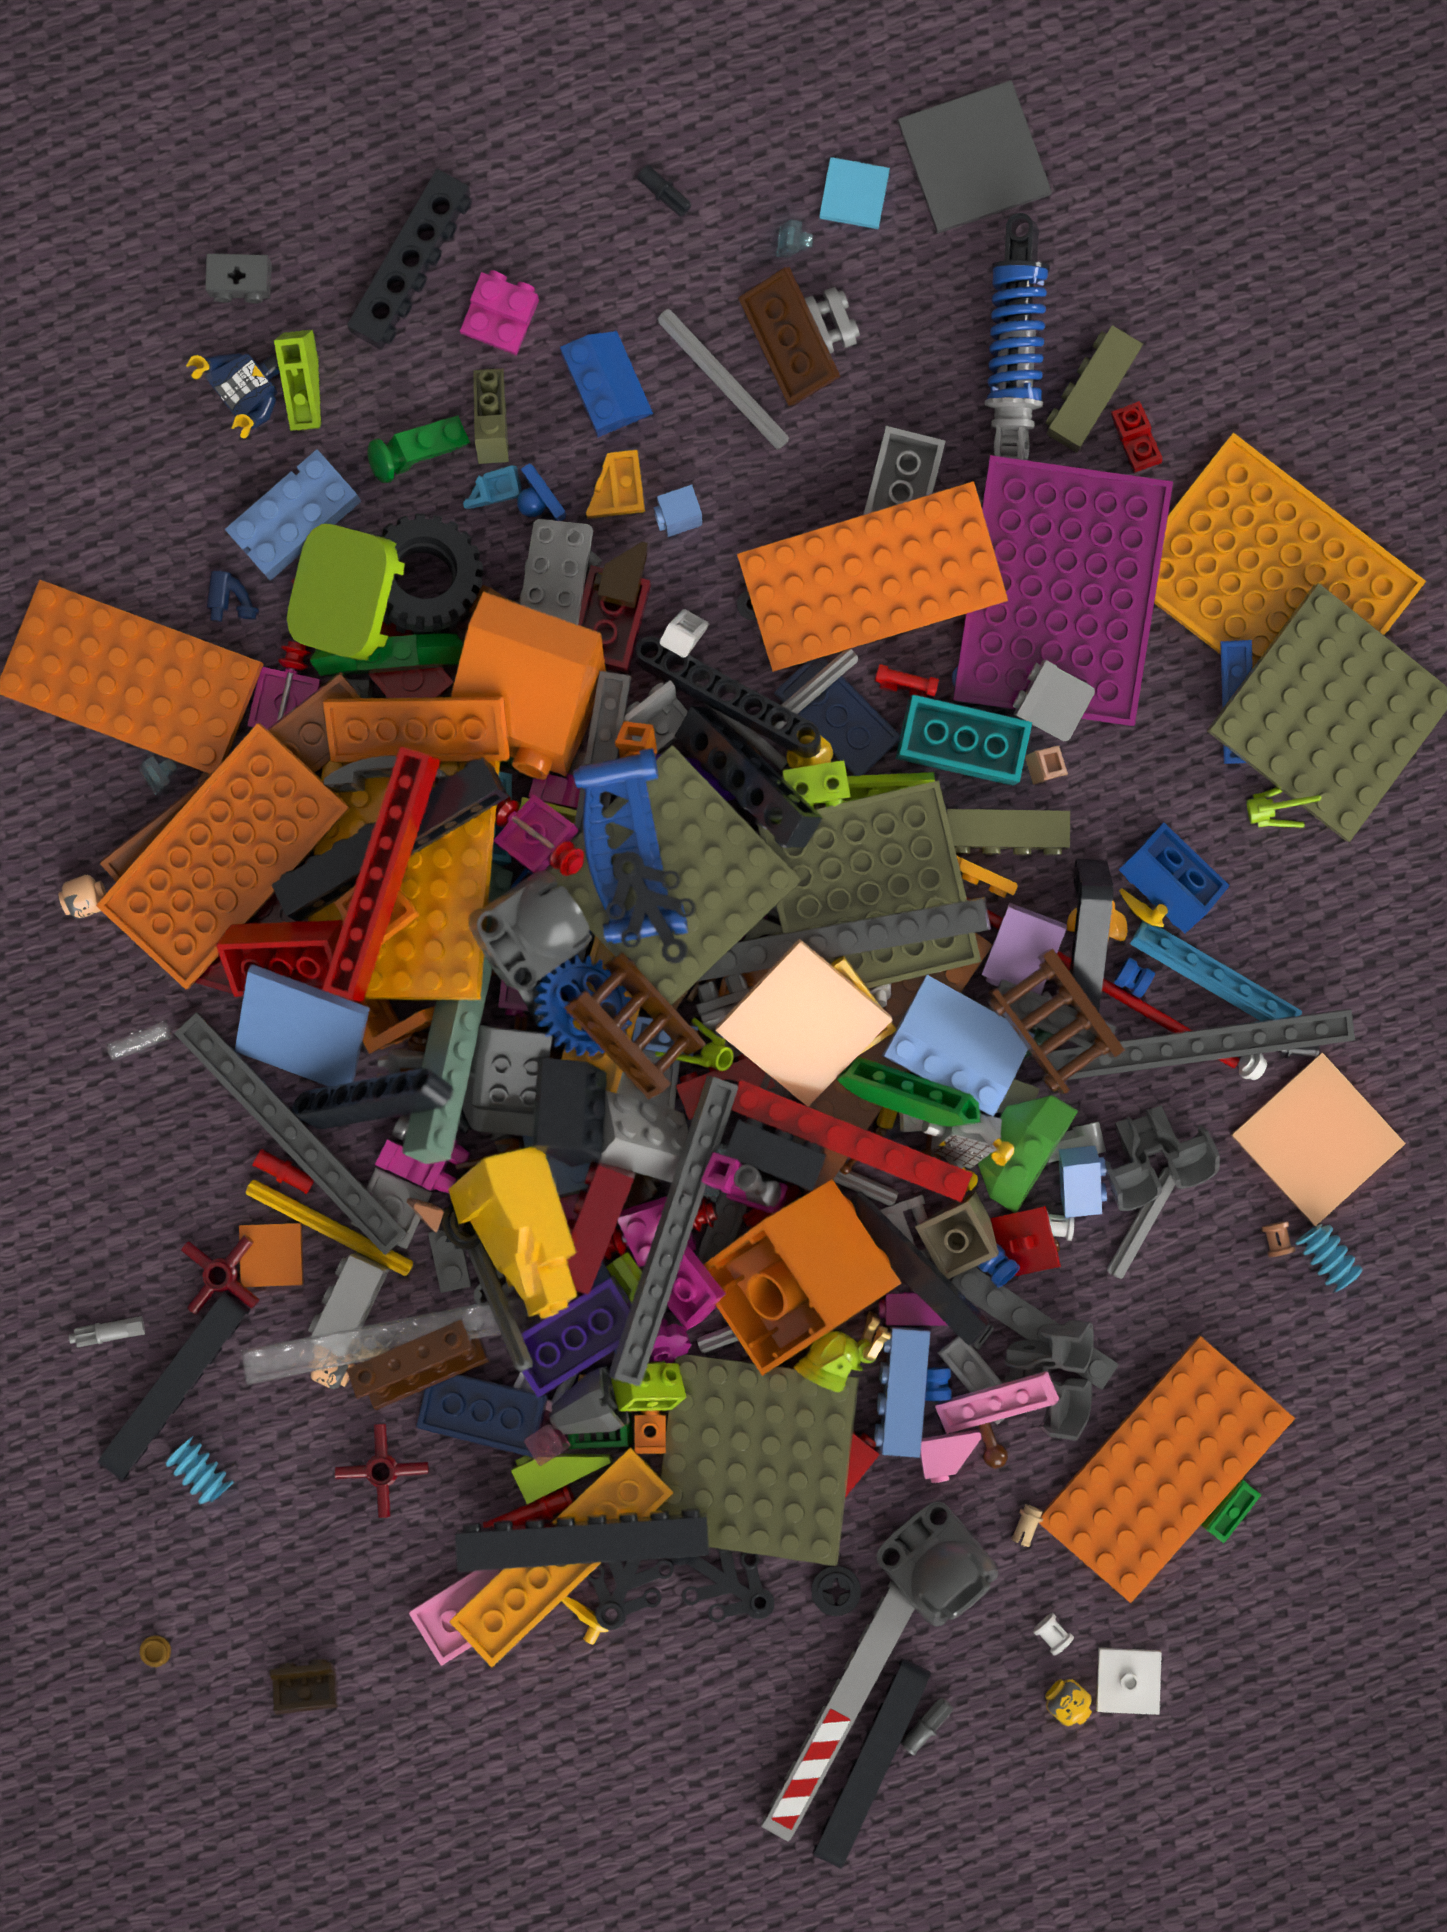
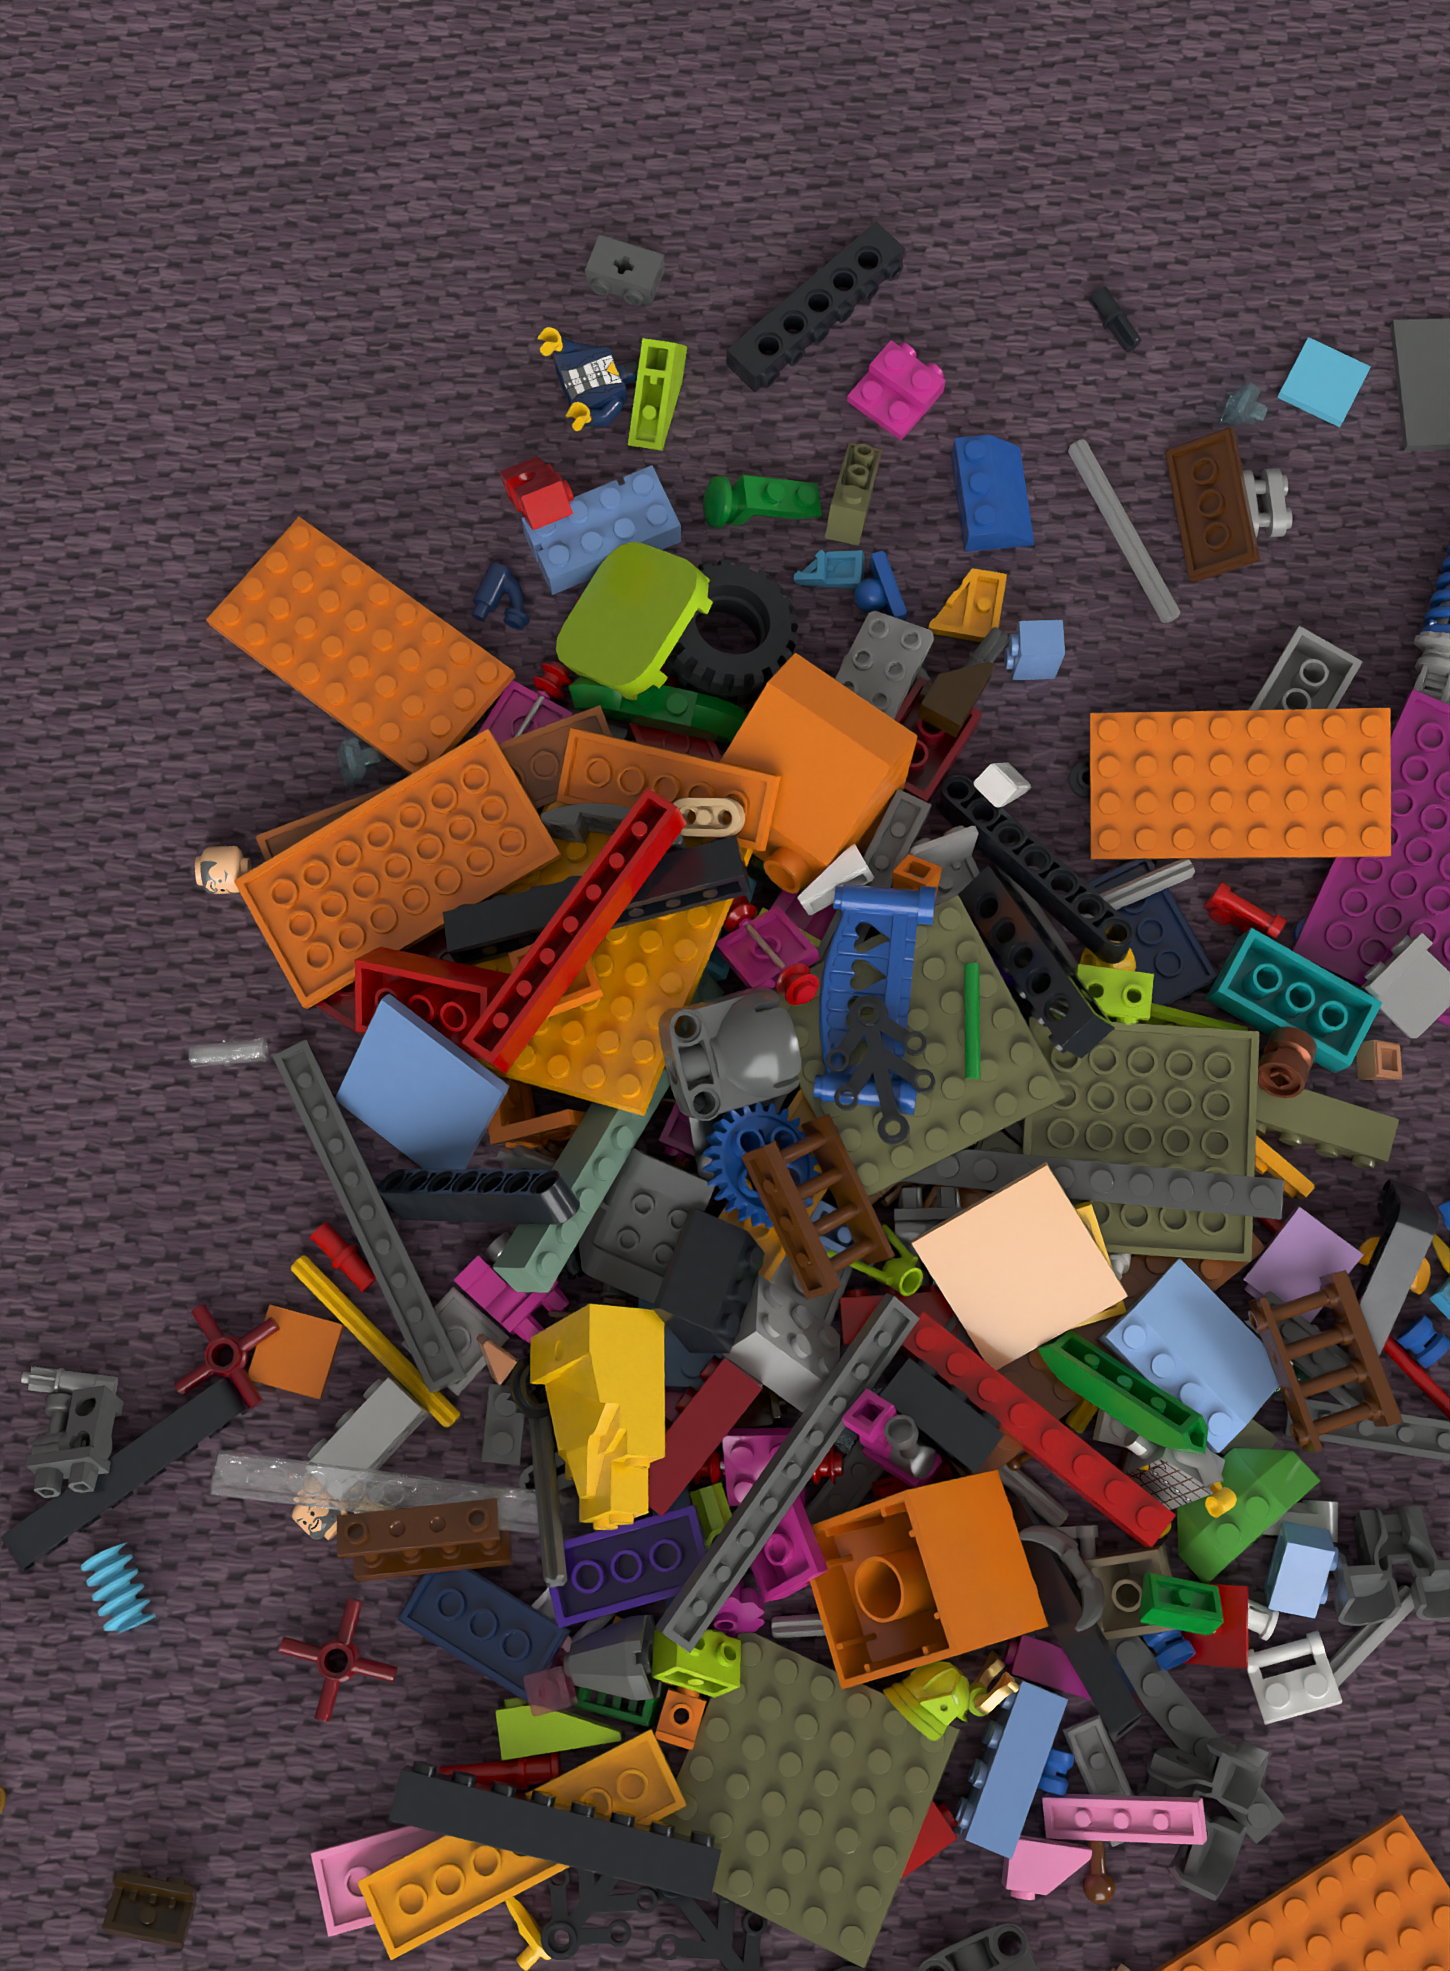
camera: 15 degrees right, 10 degrees down
(134, 1380) = (74, 1448): none -> dark grey hips
(230, 503) = (537, 492): none -> red arch
(456, 745) = (710, 816): none -> tan plate
(580, 752) = (846, 869): none -> white slope
(639, 525) = (989, 648): none -> dark grey axle
(711, 844) = (972, 1021): none -> green bar
(900, 1219) = (1091, 1587): none -> dark grey piece
(968, 795) = (1286, 1062): none -> copper wheel
(996, 1236) = (1180, 1604): none -> green slope
(1102, 1270) = (1297, 1690): none -> white plate

